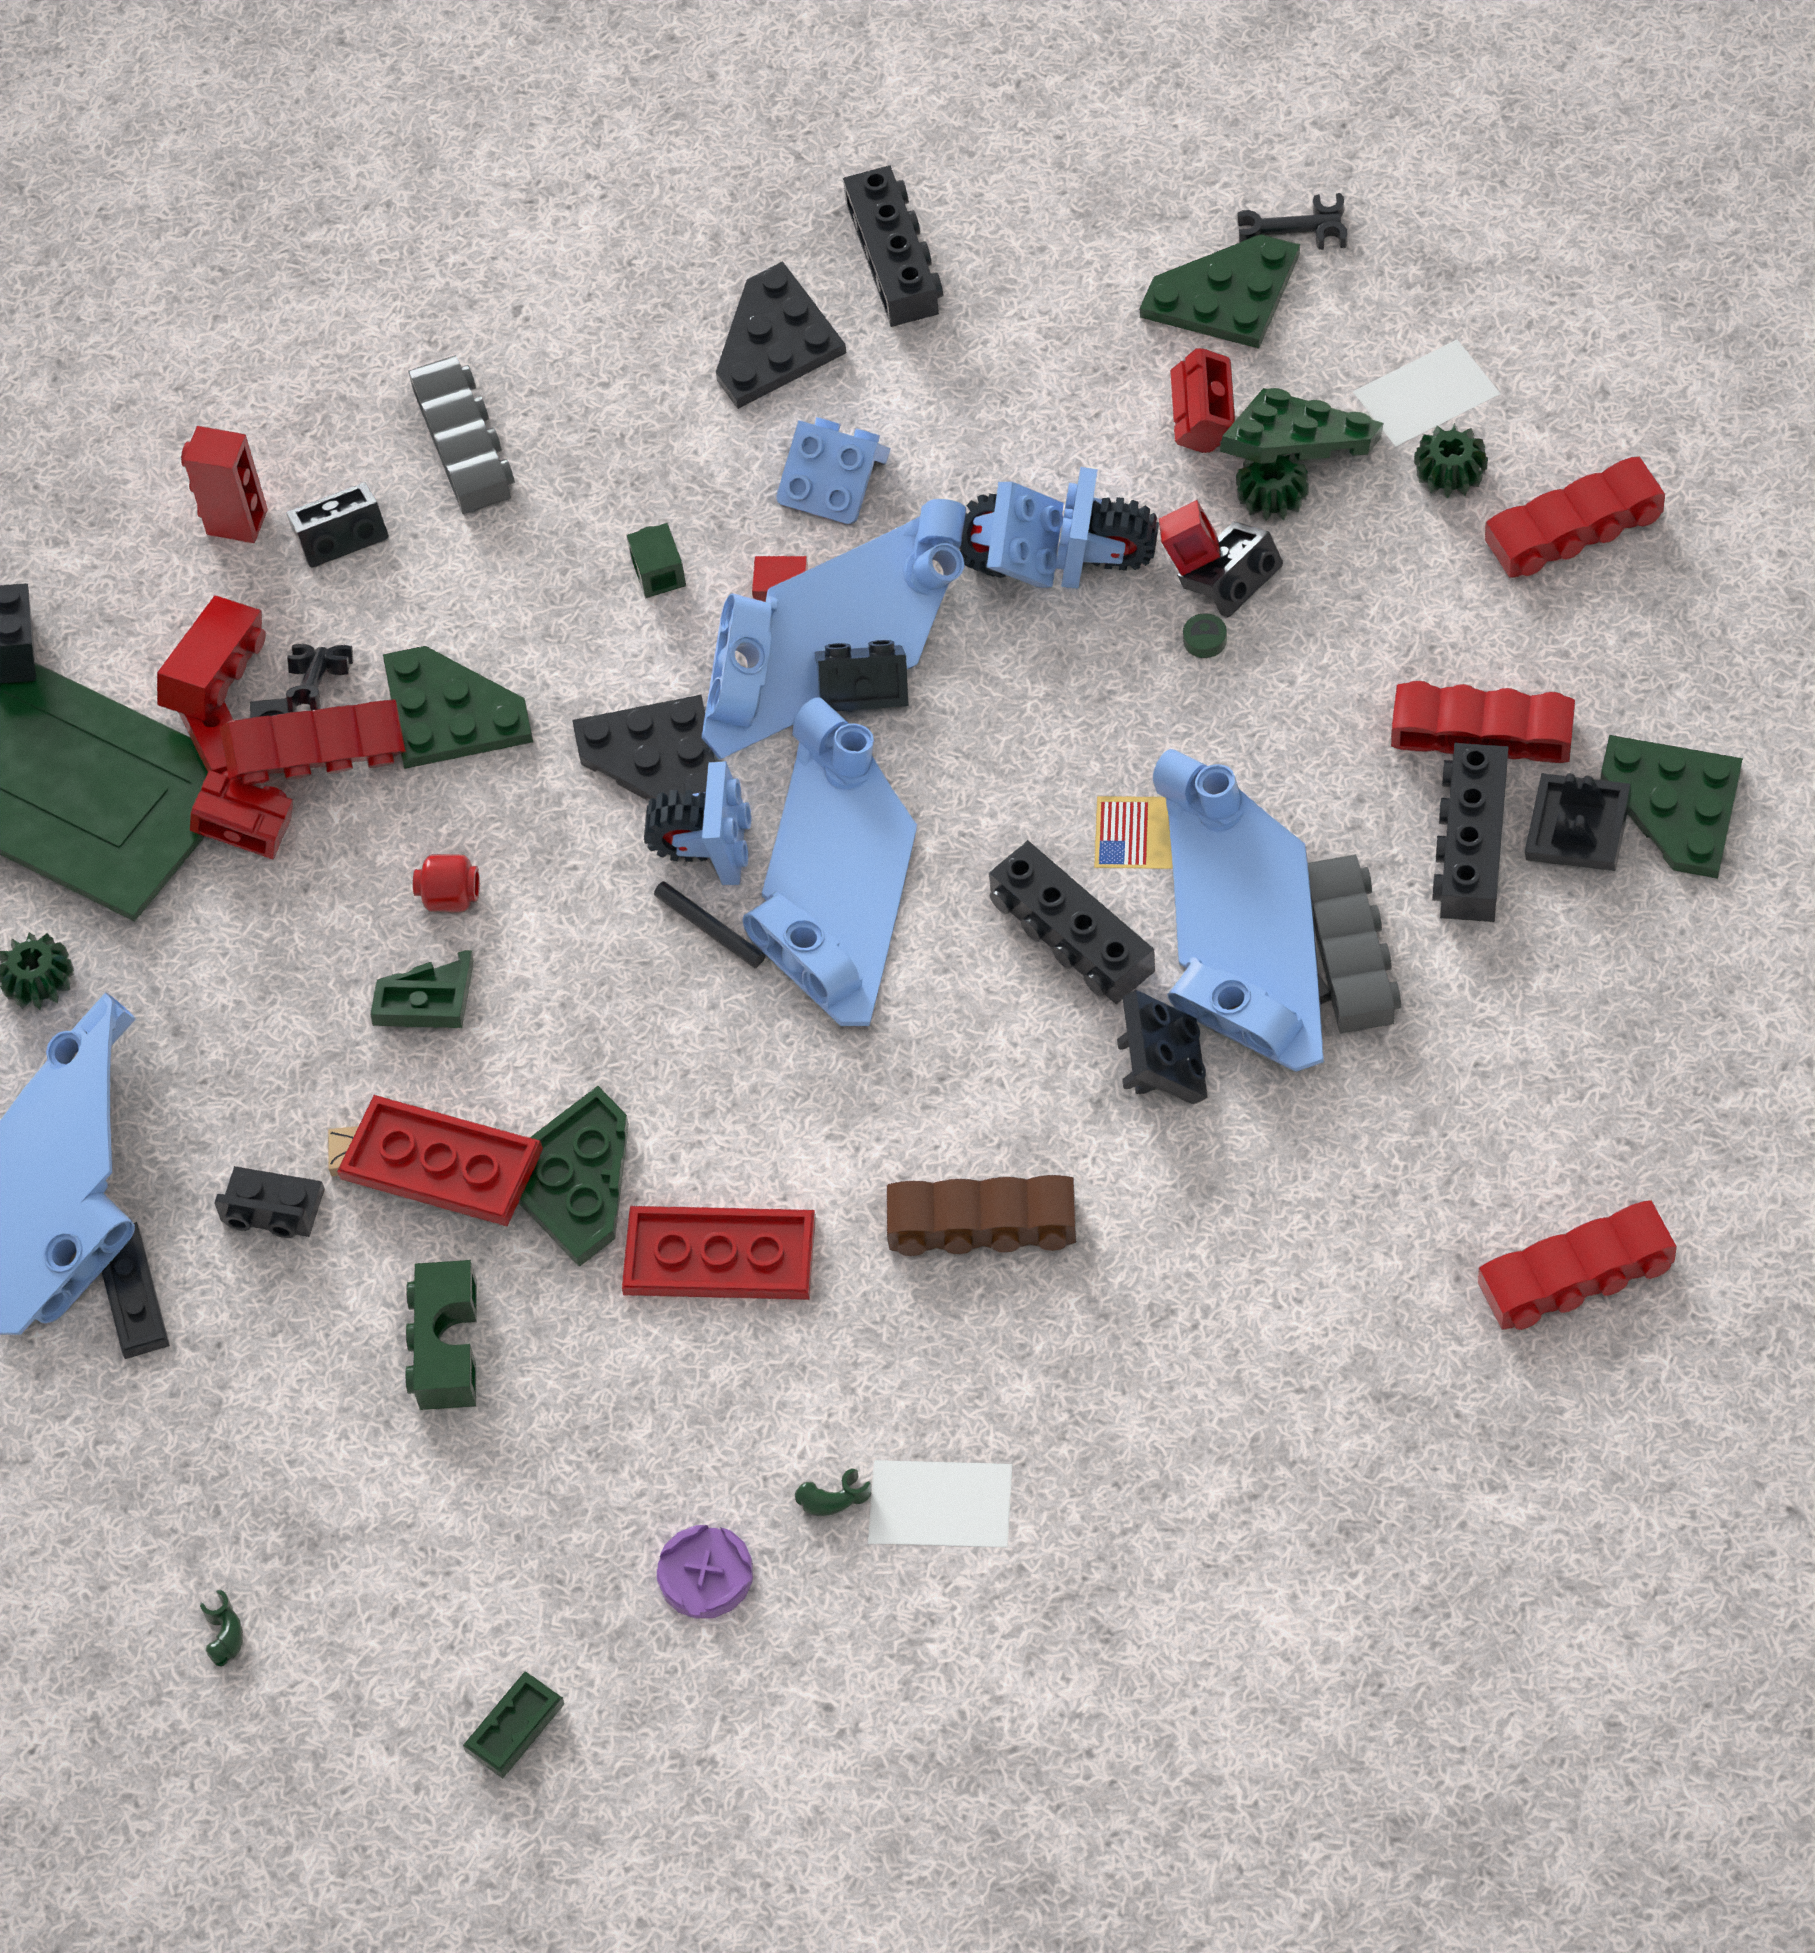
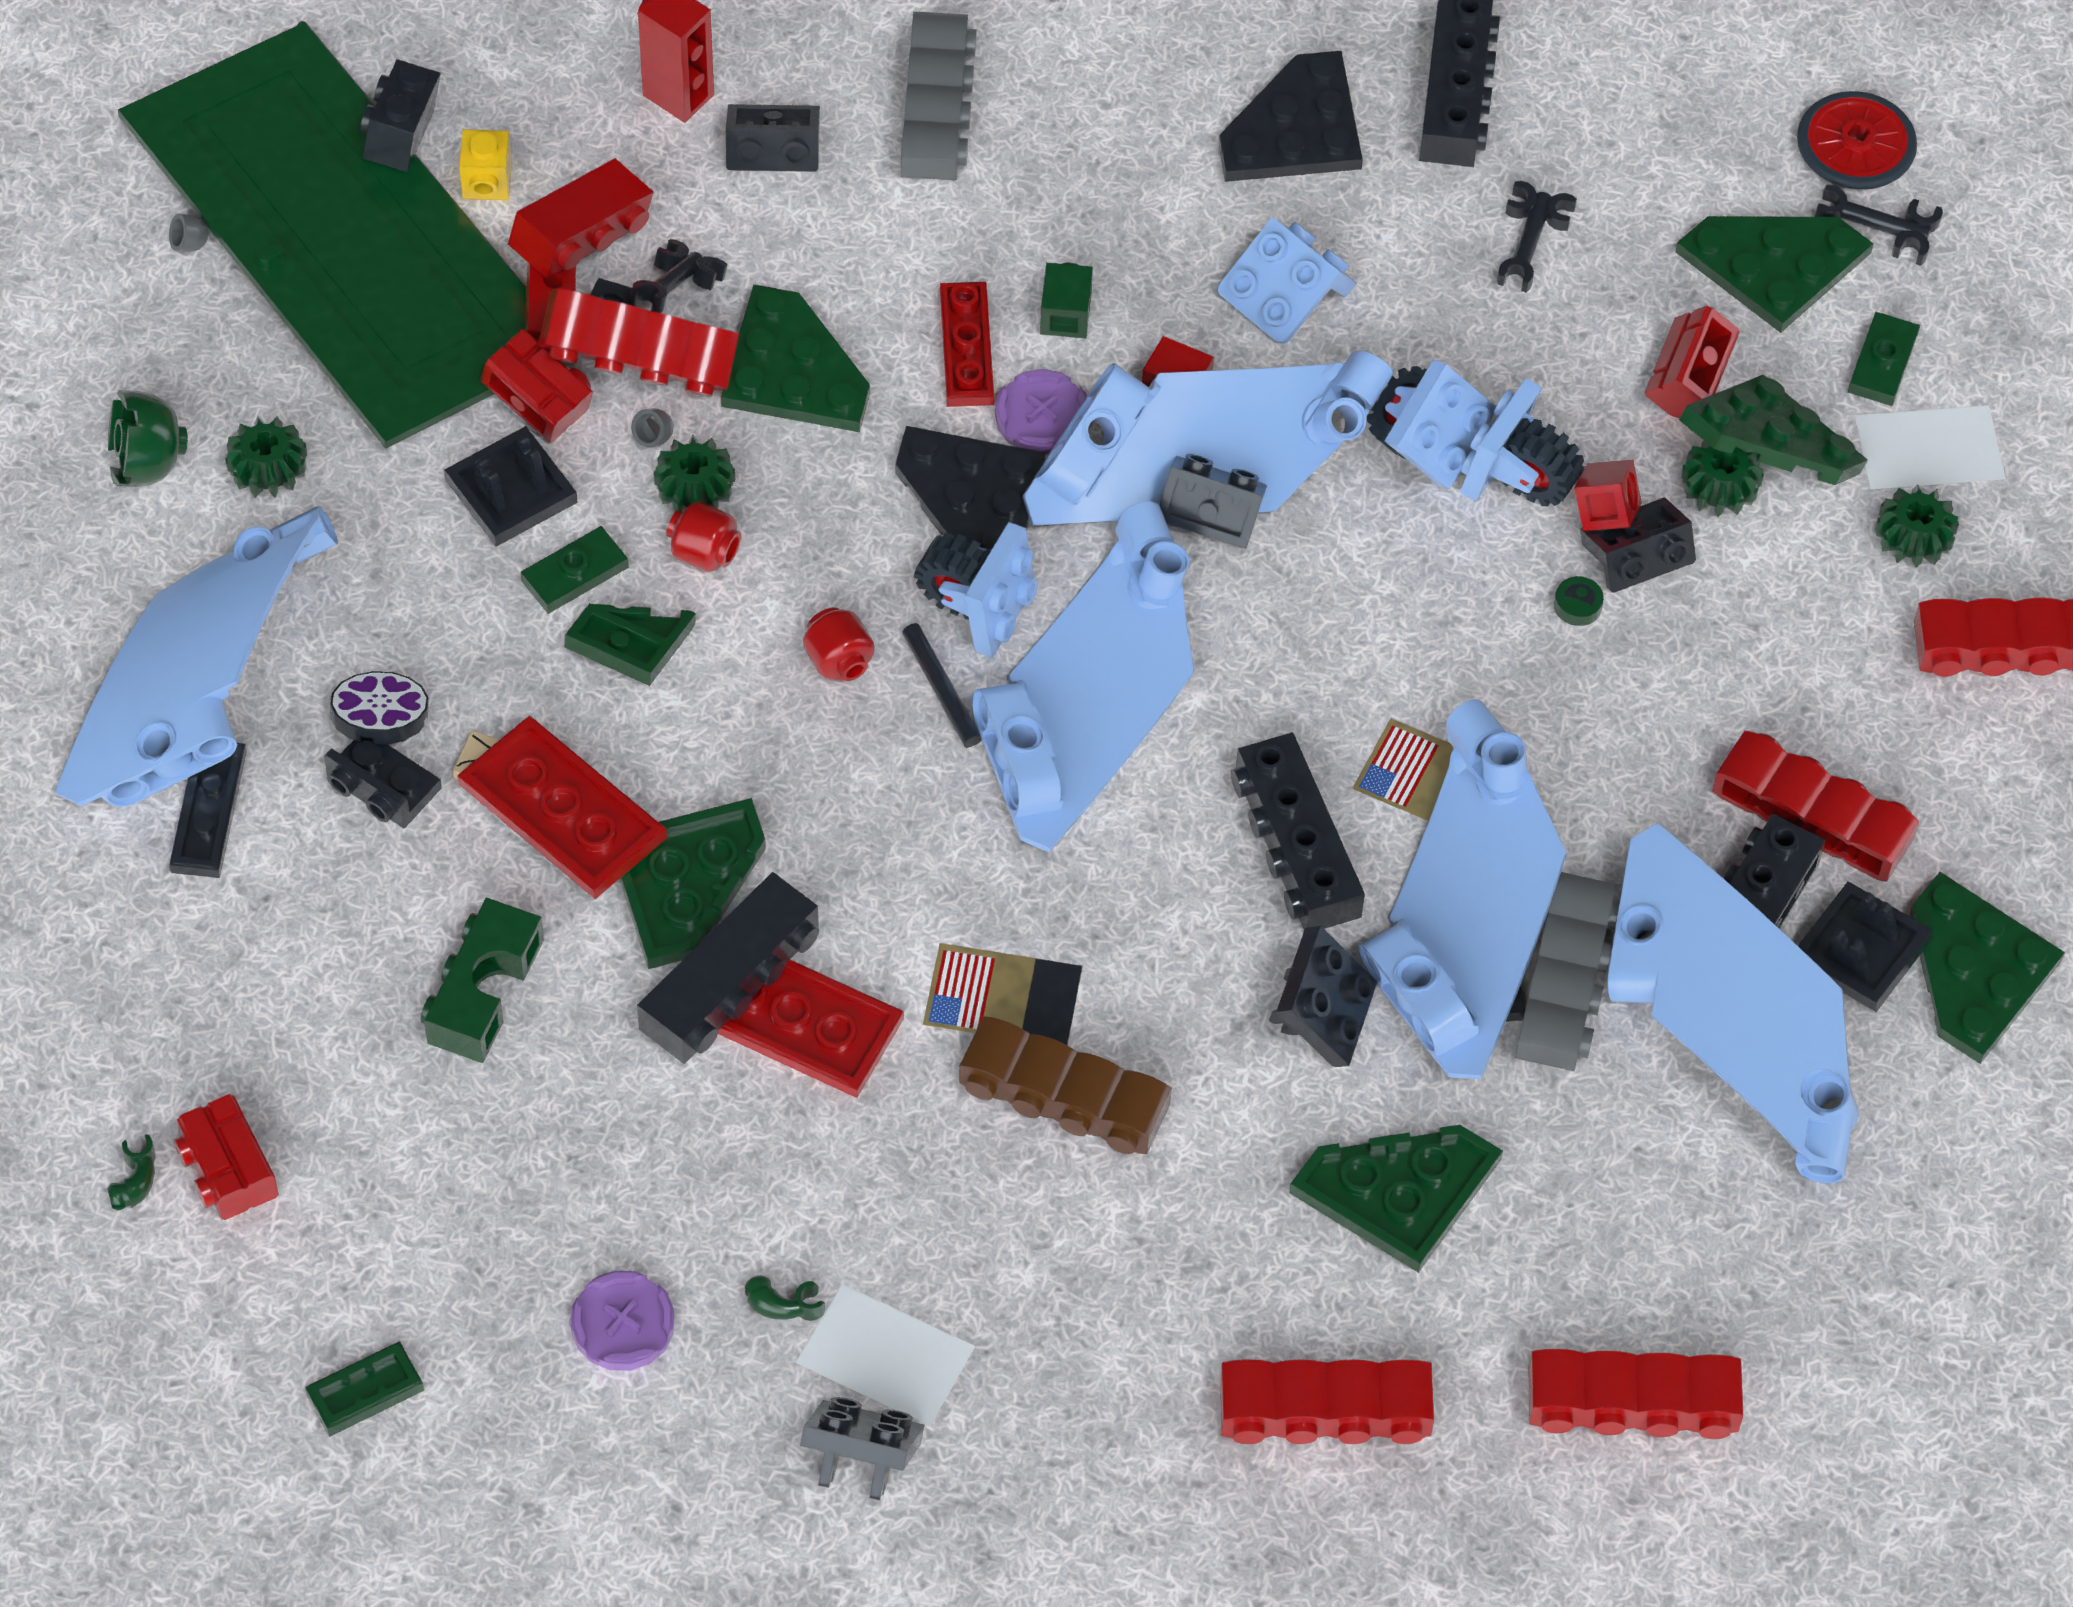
camera: 15 degrees right, 0 degrees up
(103, 646) = (485, 164): none -> yellow brick
(239, 1142) = (379, 707): none -> tile
(259, 908) = (510, 486): none -> black plate
(296, 1580) = (226, 1157): none -> red brick
(348, 957) = (574, 569): none -> dark green plate
(353, 815) = (647, 431): none -> dark grey hinge
(412, 834) = (694, 474): none -> dark green gear
(588, 631) = (966, 344): none -> red tile
(607, 926) = (838, 644): none -> red head
(652, 1235) = (729, 968): none -> black brick
(677, 661) = (1037, 409): none -> medium lavender tile
(866, 1160) = (1004, 986): none -> sticker
(970, 1576) = (846, 1430): none -> plate
(1012, 326) = (1538, 209): none -> black bar
(1243, 165) = (1830, 147): none -> red wheel
(1299, 1181) = (1399, 1187): none -> dark green plate
(1327, 1381) = (1326, 1399): none -> red brick
(1354, 335) = (1883, 358): none -> dark green plate
(1499, 904) = (1736, 997): none -> light blue panel

